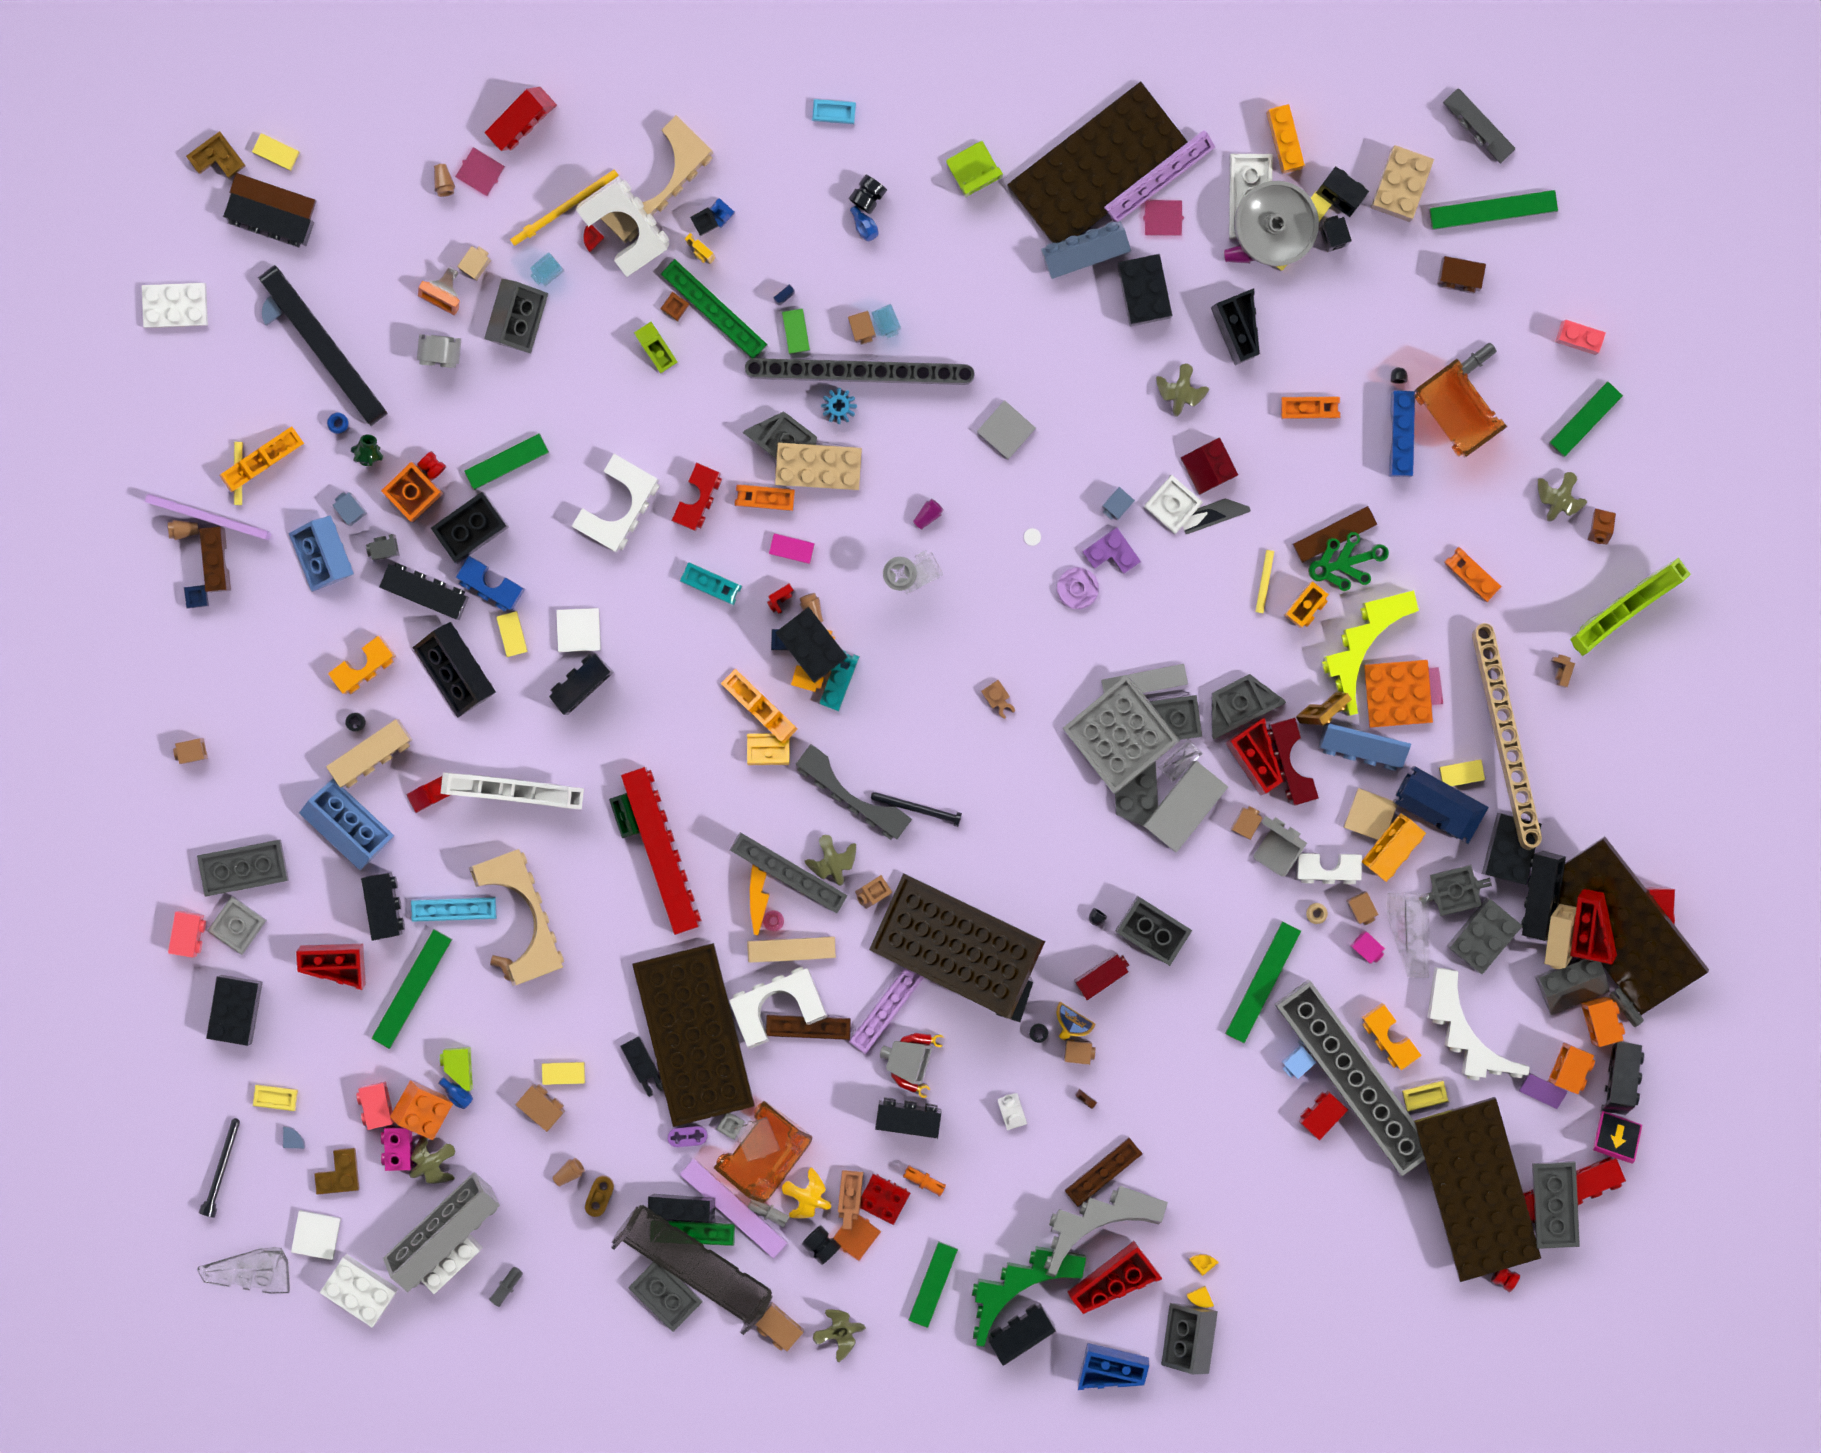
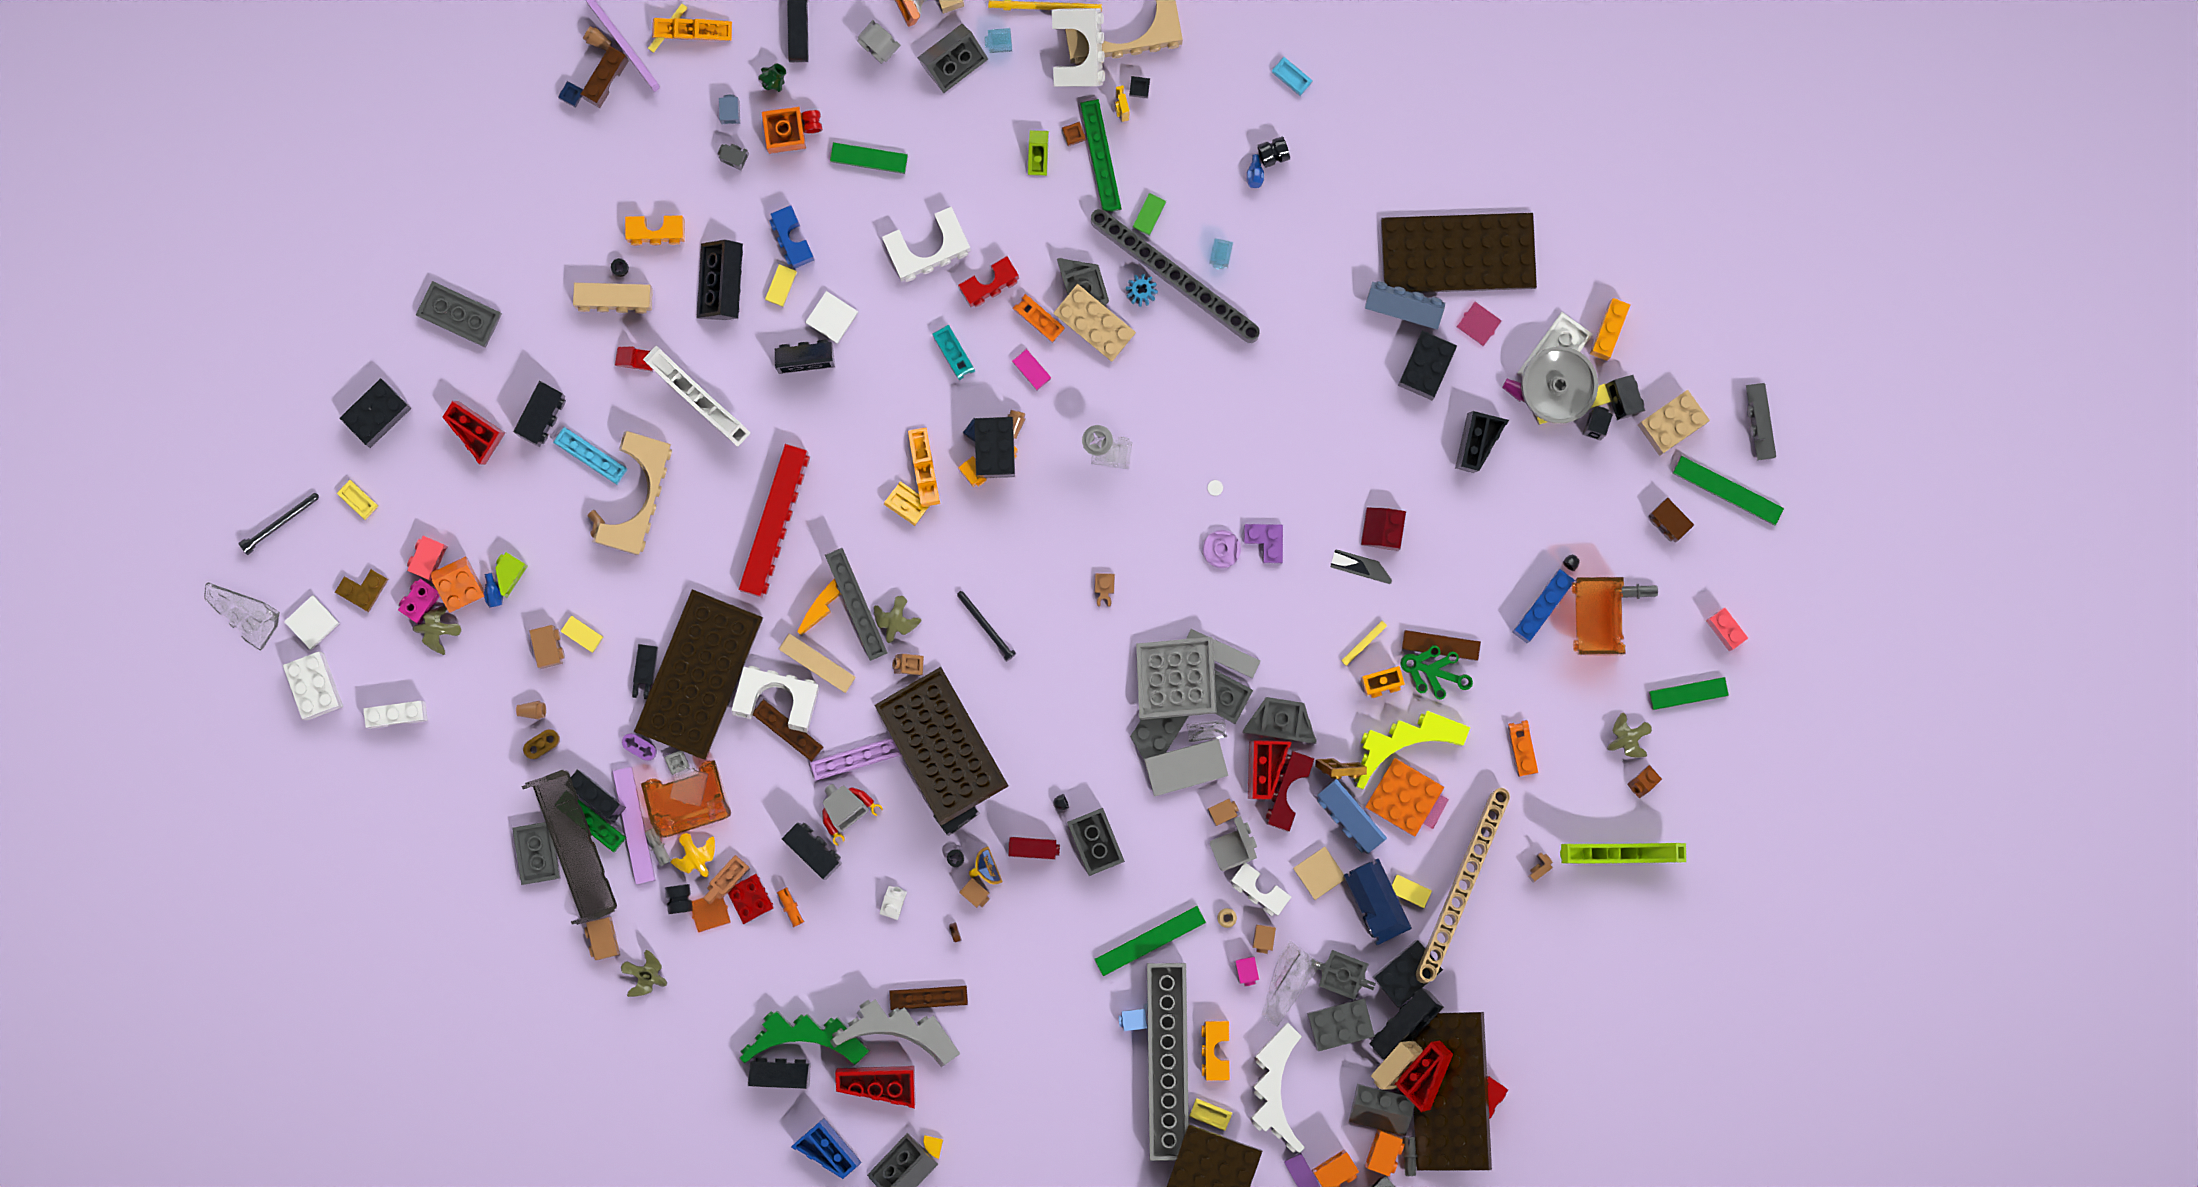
camera: 30 degrees right, 5 degrees down
(186, 934) = (382, 333): coral brick -> none
(190, 751) = (484, 202): medium nougat brick -> none
(237, 925) = (423, 353): light grey tile -> none
(292, 1138) = (347, 539): sand blue tile -> none
(321, 553) = (685, 127): medium blue slope -> none
(331, 423) = (766, 37): blue plate -> none
(346, 824) = (557, 336): medium blue slope -> none
(411, 988) = (516, 491): green tile -> none
(424, 592) = (739, 208): black brick -> none
(441, 1232) = (405, 685): light grey brick -> none
(469, 527) = (807, 185): black brick -> none
(506, 1286) = (423, 762): dark grey axle -> none
(592, 237) = (1049, 41): red tile -> none
(624, 815) = (765, 476): dark green tile -> none
(721, 212) = (1157, 90): blue tile -> none
(766, 920) = (813, 630): clear pink plate -> none
(782, 594) = (1000, 397): red bracket -> none
(784, 295) = (1159, 181): dark blue tile -> none
(817, 764) = (935, 542): dark grey arch -> none
(838, 683) = (994, 492): teal plate -> none
(862, 327) = (1199, 245): medium nougat brick -> none
(928, 513) = (1151, 415): magenta cone -> none
(933, 1284) = (740, 990): green tile -> none
(974, 168) = (1365, 189): lime bracket -> none
(1006, 429) = (1252, 395): light grey tile -> none
(1117, 504) = (1295, 507): sand blue brick -> none
(1160, 176) = (1497, 291): lavender tile -> none
(1173, 504) = (1336, 538): white tile -> none
(1181, 391) = (1401, 458): olive animal -> none
(1203, 1262) = (954, 1120): yellow tile -> none
(1309, 407) = (1489, 538): orange plate -> none
(1322, 1115) = (1124, 1072): red brick -> none
(1393, 847) = (1319, 909): light orange brick -> none

